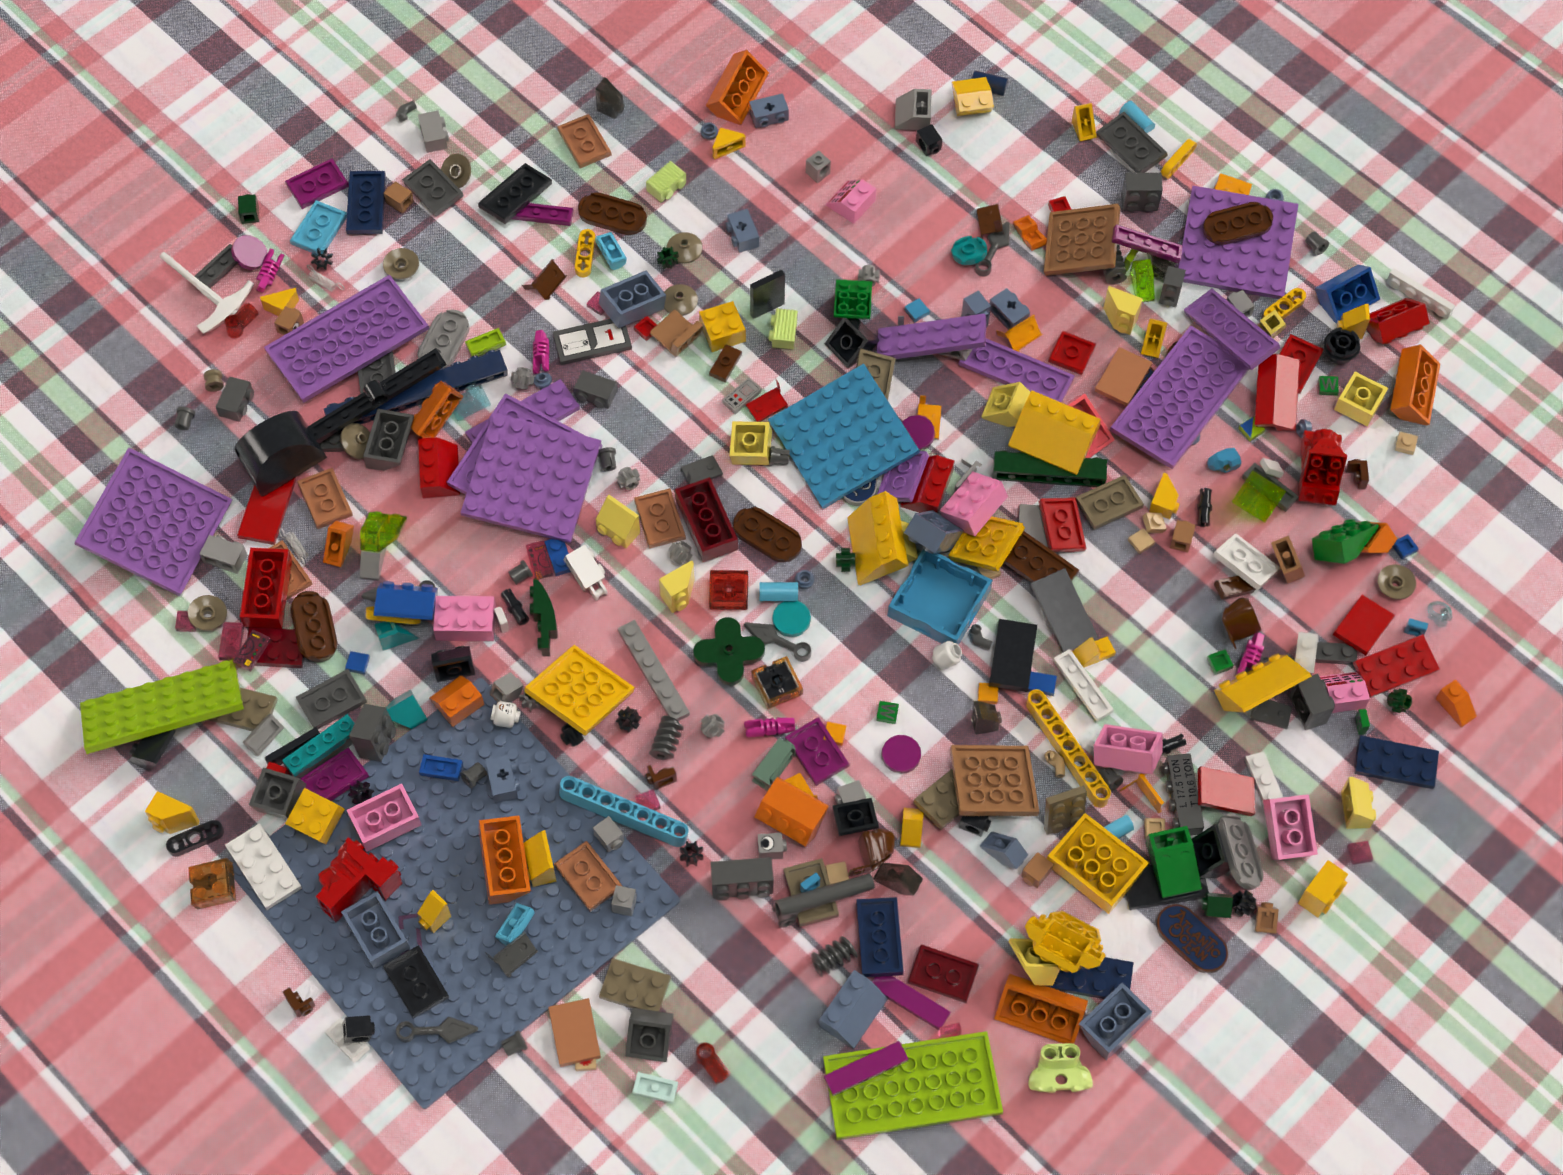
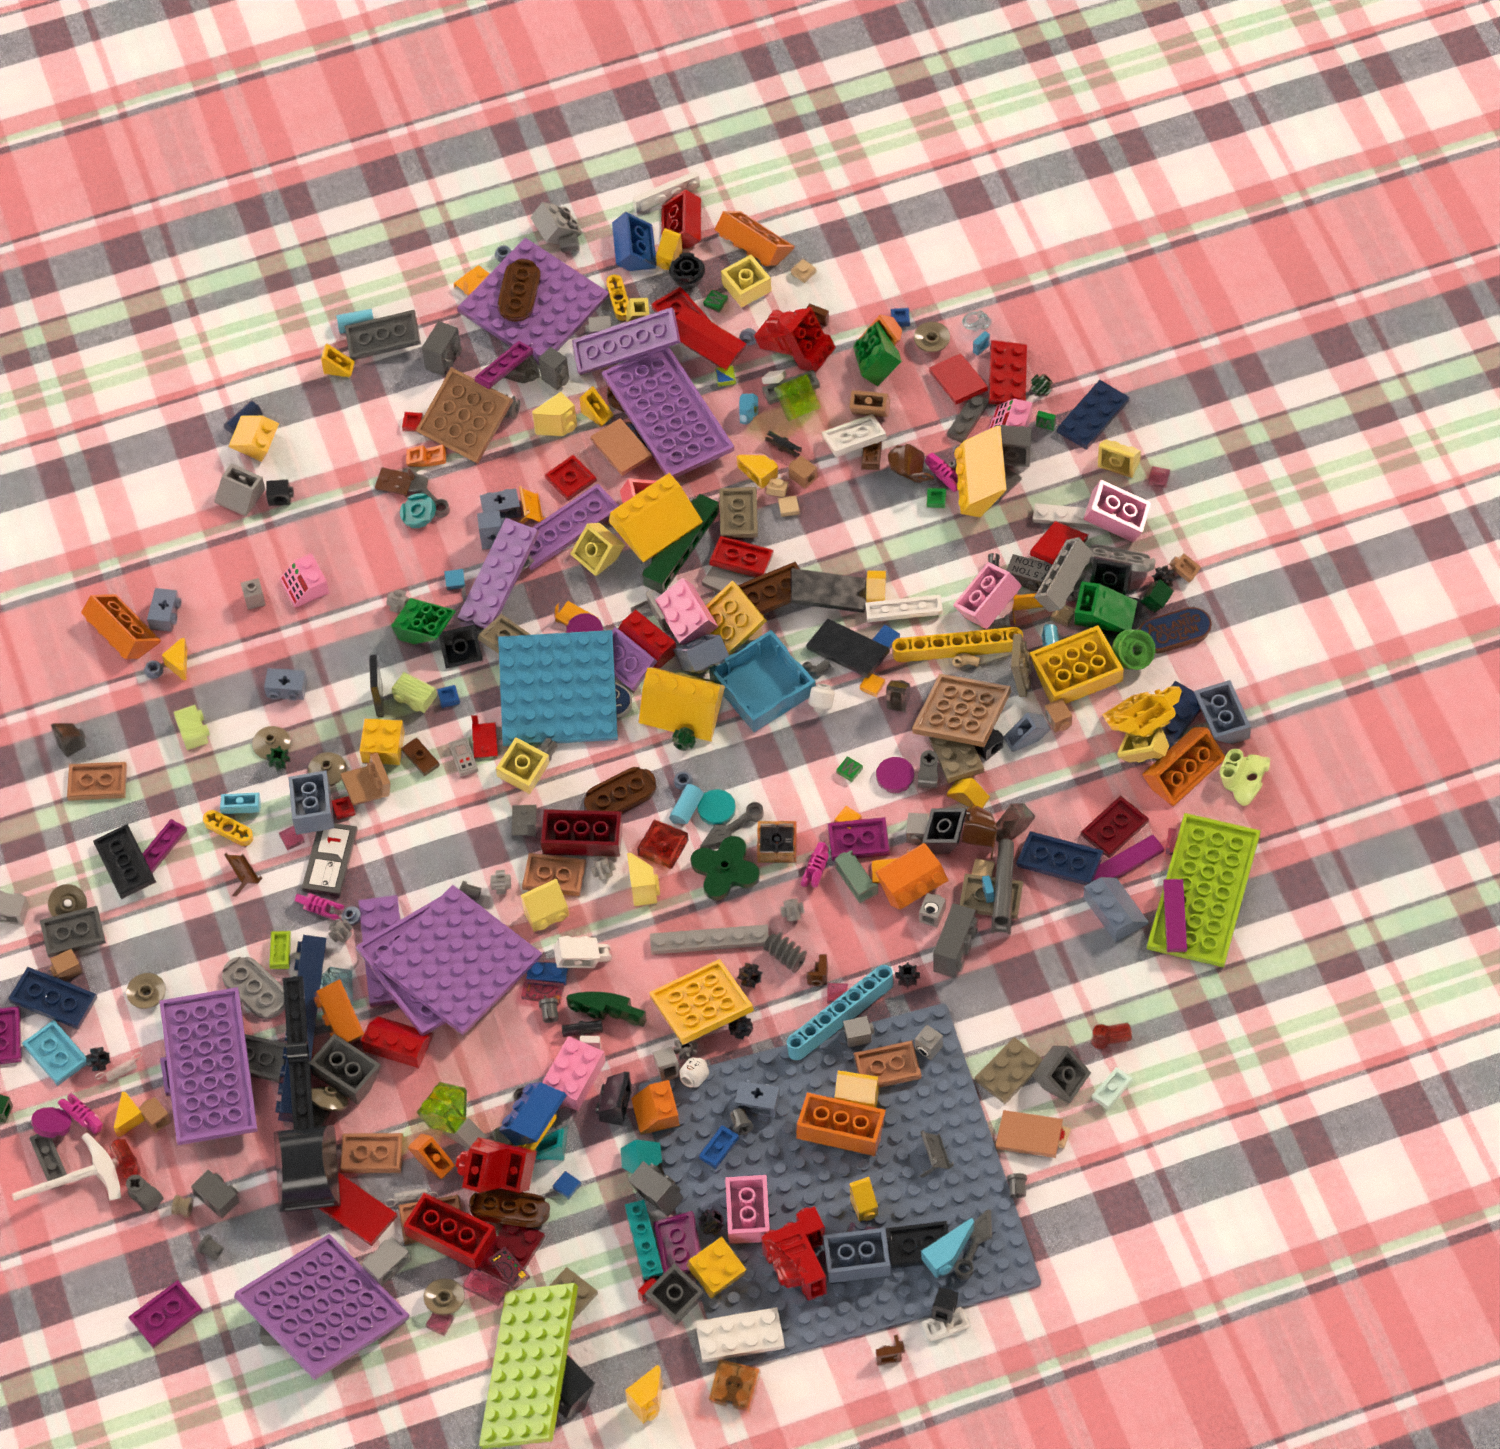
camera: 60 degrees left, 5 degrees down
(113, 414) = (165, 1314): none -> magenta tile
(196, 830) = (672, 1380): black beam -> none
(213, 347) = (143, 1193): none -> dark grey piece
(263, 734) = (602, 1290): light grey tile -> none
(281, 753) = (630, 1269): black tile -> none
(331, 699) = (595, 1219): dark grey plate -> none
(336, 590) = (495, 1166): none -> red brick
(411, 1007) = (944, 1252): none -> medium azure slope
(515, 923) = (907, 1140): medium azure brick -> none
(595, 389) = (388, 874): dark grey brick -> none
(612, 213) = (196, 788): reddish brown tile -> none
(797, 358) = (448, 696): none -> blue tile
(832, 955) = (1060, 901): dark grey piece -> none
(914, 781) = (928, 771): none -> dark grey piece
(1130, 257) = (502, 387): lime tile -> none
(1143, 279) = (530, 389): clear neon green slope -> none
(1146, 896) = (1143, 645): none -> bright green wheel
(1178, 158) = (419, 306): yellow beam -> none
(1185, 806) = (1063, 574): none -> light grey brick
(1306, 650) = (963, 425): white brick -> none
(1324, 889) = (1182, 513): yellow brick -> none
(1331, 221) = (554, 222): none -> light grey slope
(1457, 703) = (1063, 346): orange slope -> none

